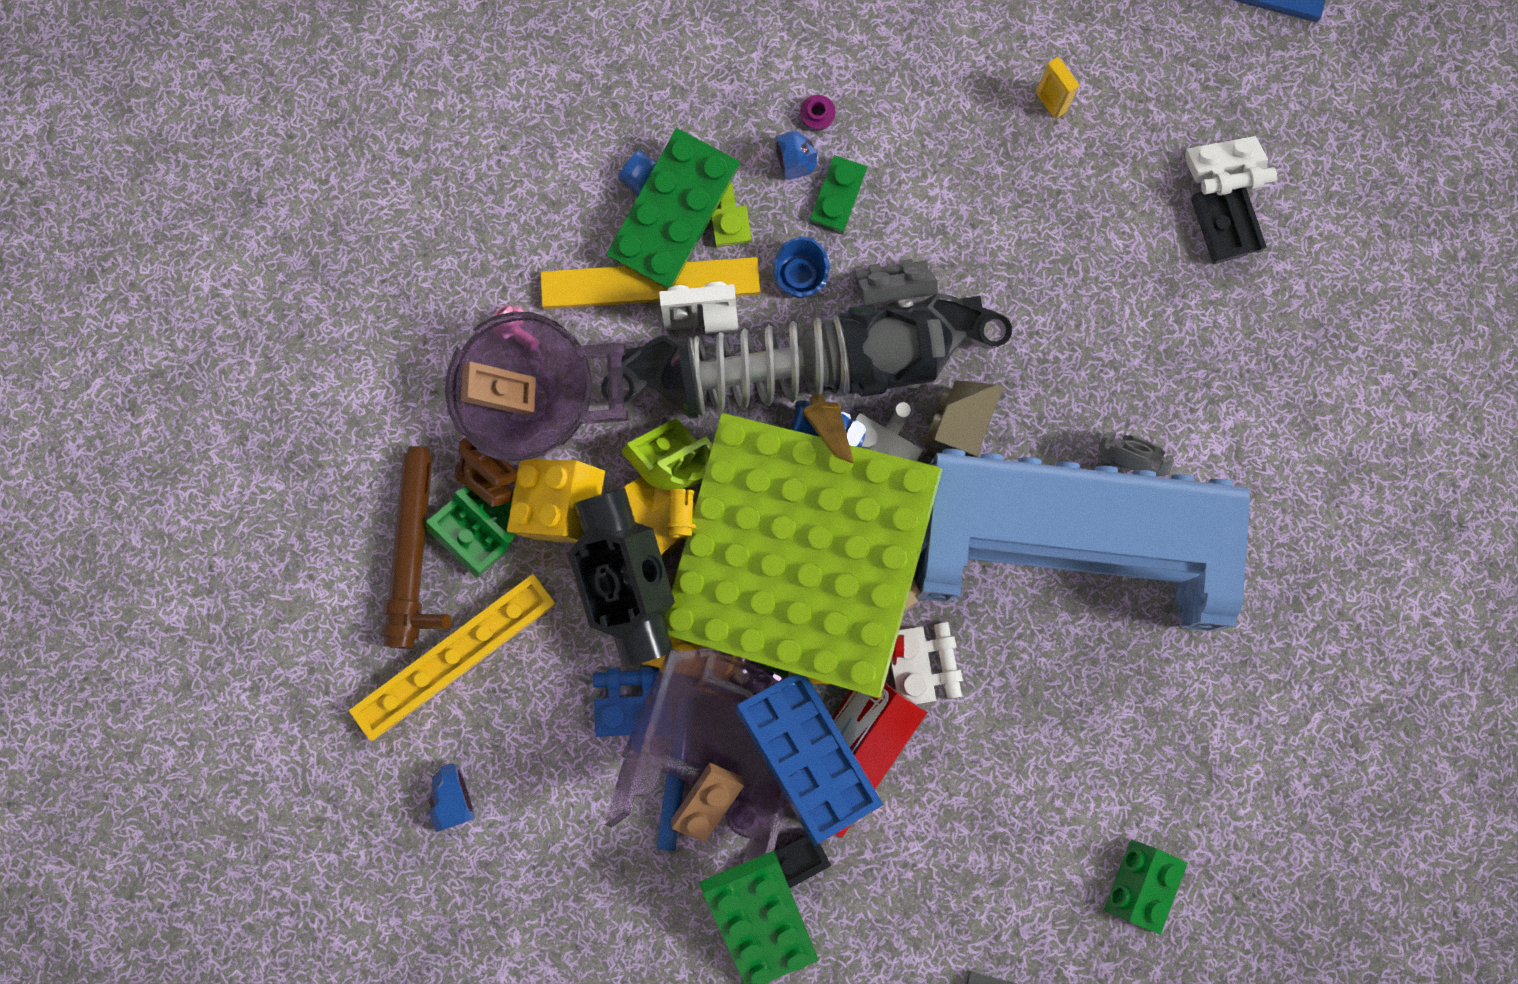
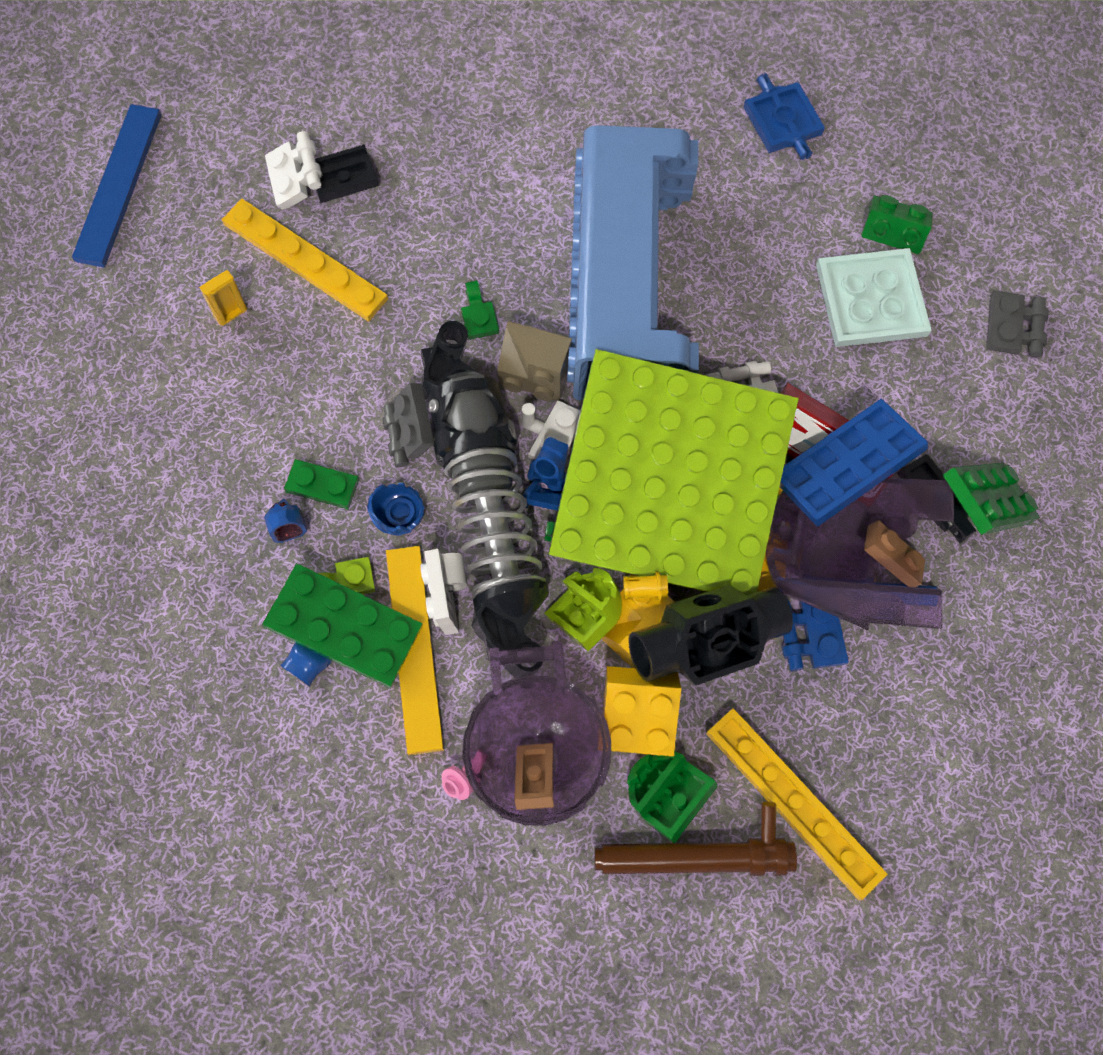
camera: 95 degrees left, 10 degrees down
(449, 799) = (930, 791): blue rock -> none
(484, 474) = (621, 785): reddish brown piece -> none
(817, 122) = (245, 514): magenta plate -> none
(829, 425) = (553, 458): pearl gold bar -> none
(1033, 370) = (478, 316): none -> green plate
(1041, 837) = (873, 297): none -> light aqua plate
(1115, 180) = (305, 259): none -> yellow plate
(1136, 453) = (551, 231): dark grey tile -> none
(1304, 763) = (783, 117): none -> blue plate

